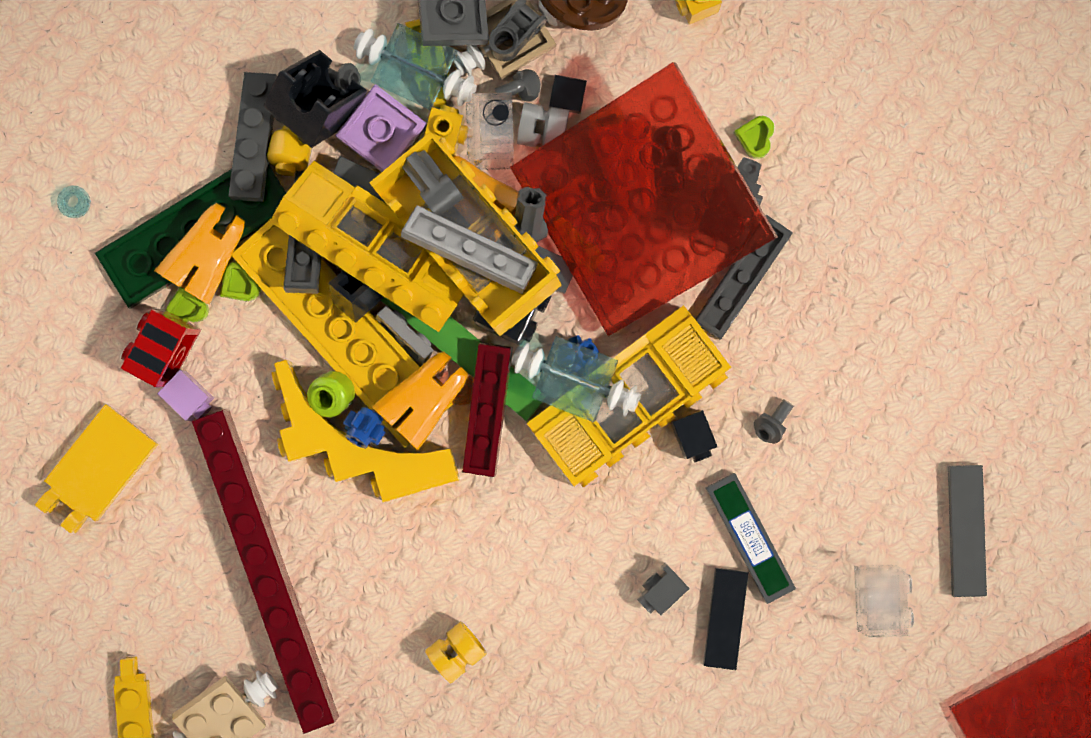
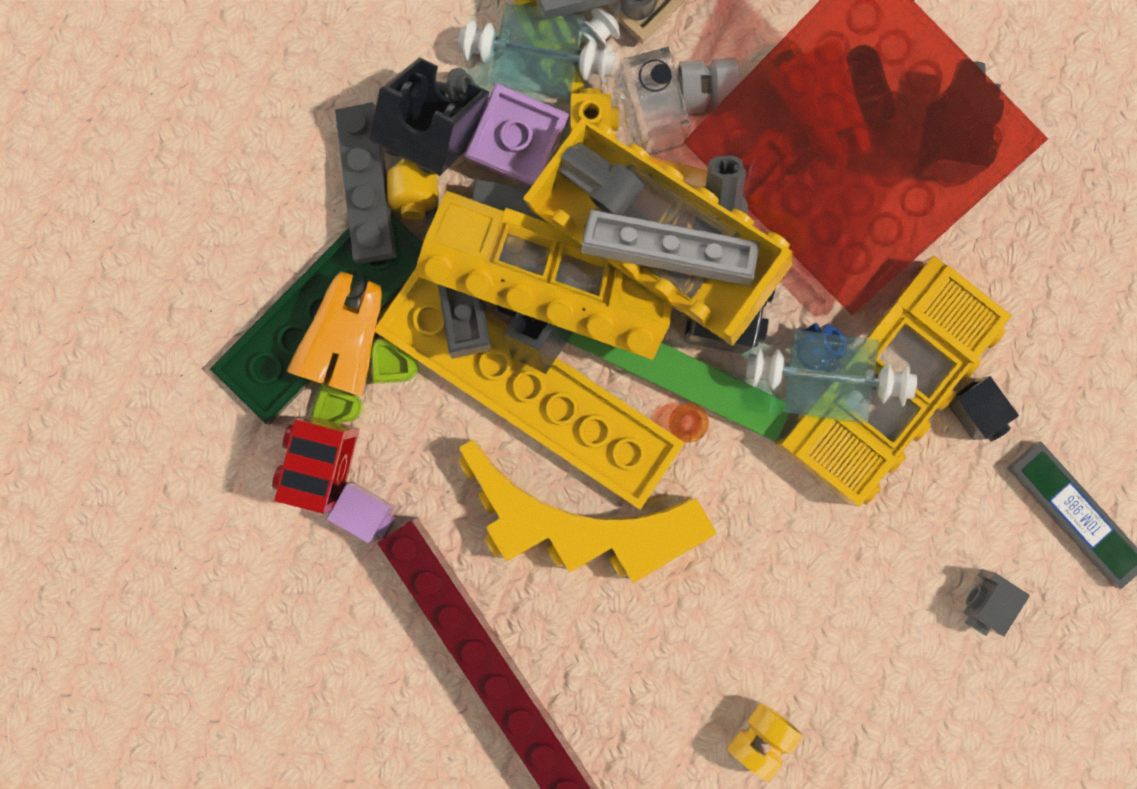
camera: 10 degrees left, 0 degrees up
(83, 202) = (181, 314): clear light blue plate -> none
(96, 468) = (275, 626): yellow tile -> none
(331, 394) = (536, 467): lime head -> none
(364, 427) = (588, 498): blue gear -> none
(413, 343) = (618, 381): light grey plate -> none
(420, 400) = (647, 449): light orange piece -> none
(487, 409) = (728, 439): dark red plate -> none
(525, 84) = (678, 38): dark grey plate -> none
(568, 93) = (725, 40): black tile -> none
(725, 619) = (1074, 619): black tile -> none
(740, 283) = (981, 230): dark grey tile -> none
(755, 136) = (964, 31): lime tile -> none
(770, 427) = (1068, 374): dark grey plate -> none

